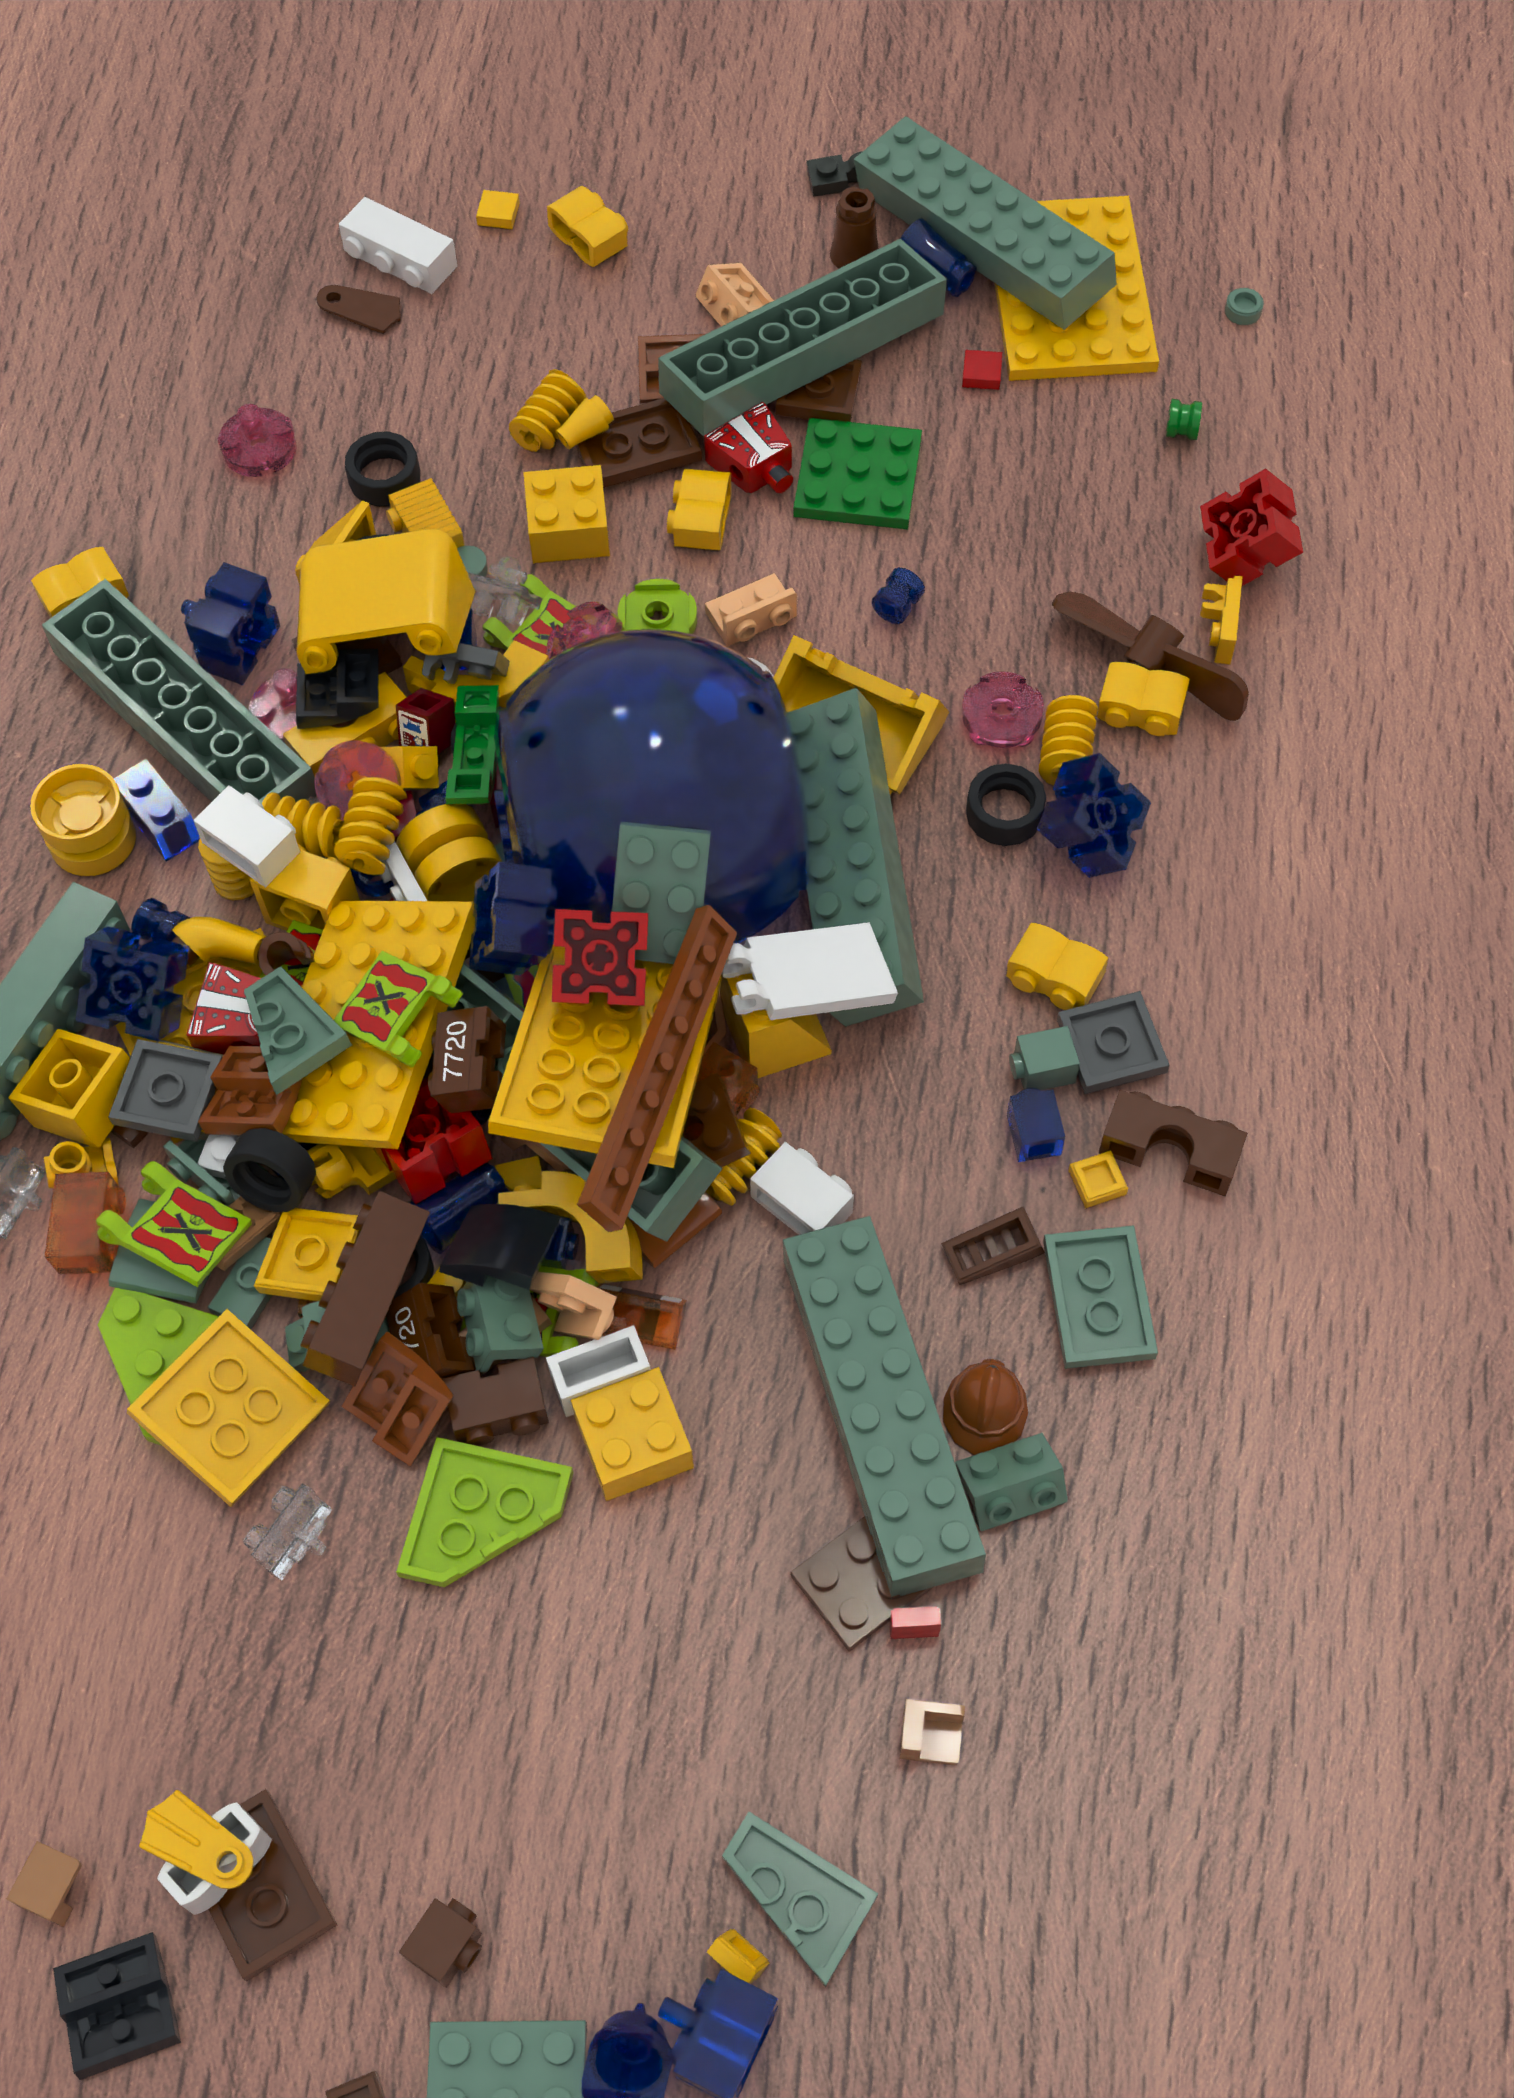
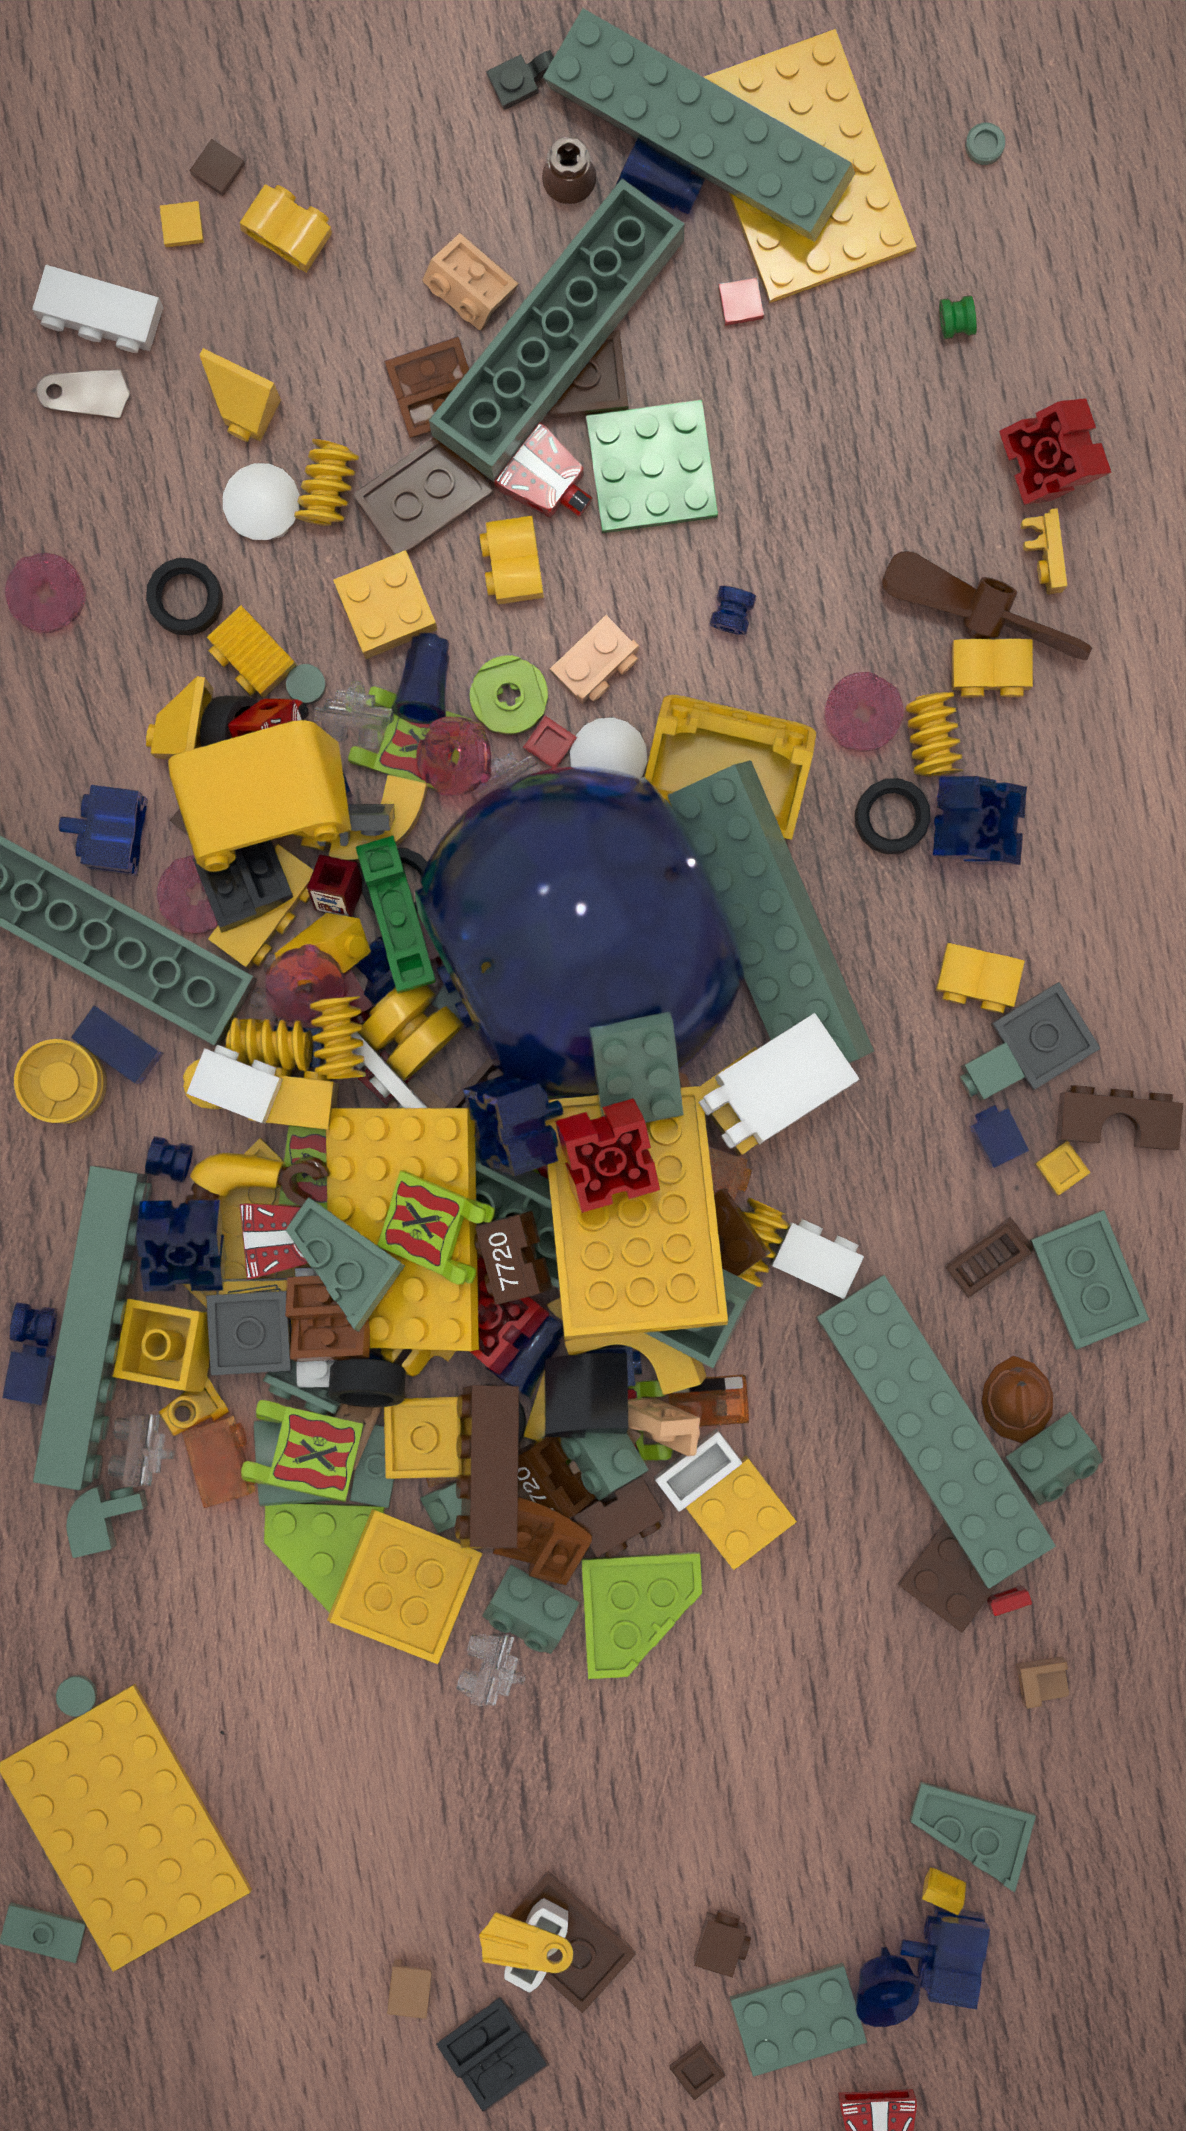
camera: 15 degrees left, 25 degrees up
(359, 1480) = (530, 1610): none -> sand green bracket
(482, 418) = (261, 501): none -> white dish
(498, 324) = (242, 396): none -> yellow slope
(545, 178) = (217, 167): none -> reddish brown tile
(577, 577) = (423, 680): none -> clear blue plant
(585, 422) = (371, 498): yellow cone -> none
(657, 1070) = (692, 1245): dark orange plate -> none

